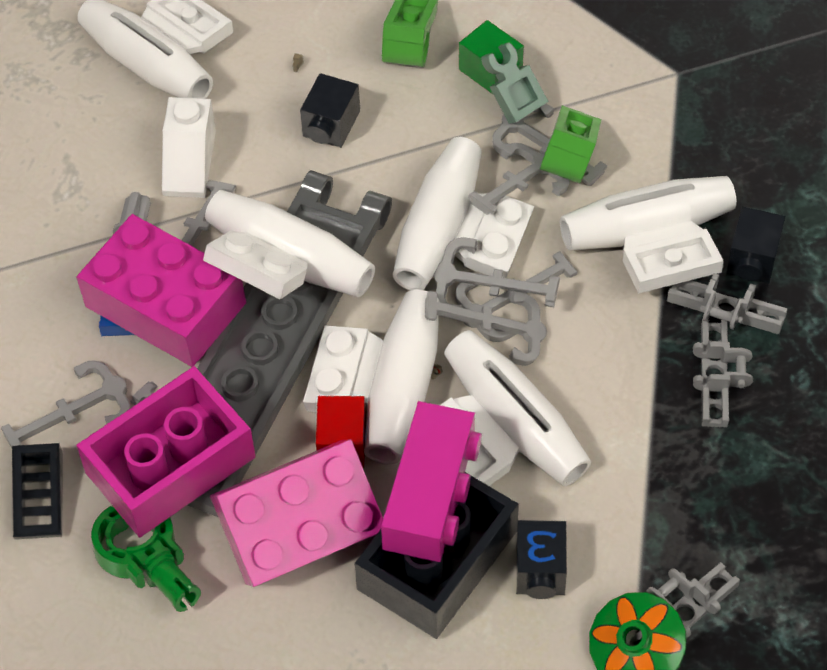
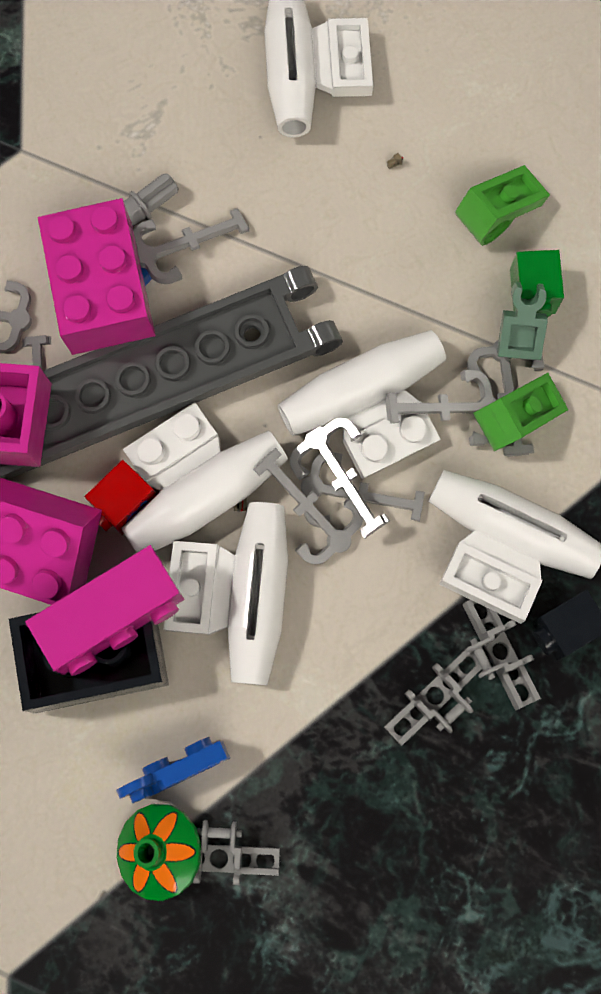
camera: 45 degrees right, 20 degrees up
(187, 147) = (242, 168): white slope -> none
(280, 249) = (197, 318): white plate -> none
(330, 110) = (371, 225): black brick -> none
(541, 558) = (154, 727): black brick -> none
(584, 586) = (163, 775): none -> blue hinge

